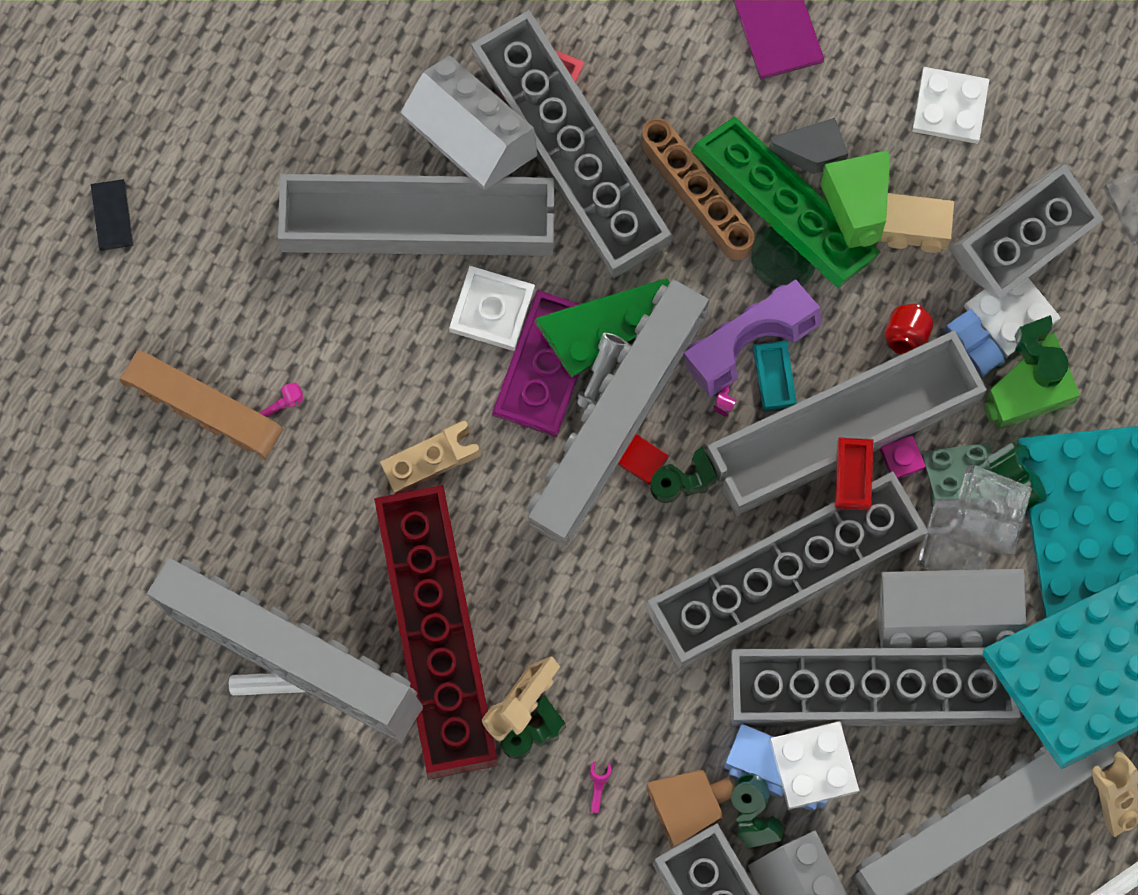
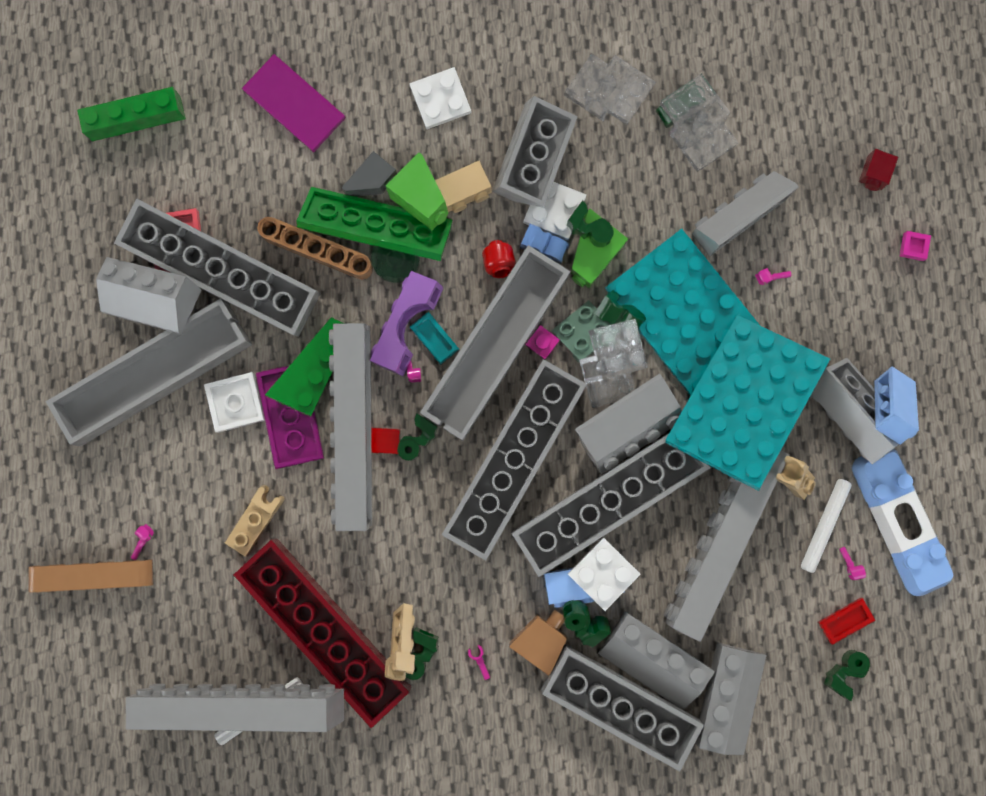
camera: 25 degrees left, 10 degrees up
(605, 362) = (322, 387): light grey piece -> none
(854, 473) = (520, 376): red tile -> none

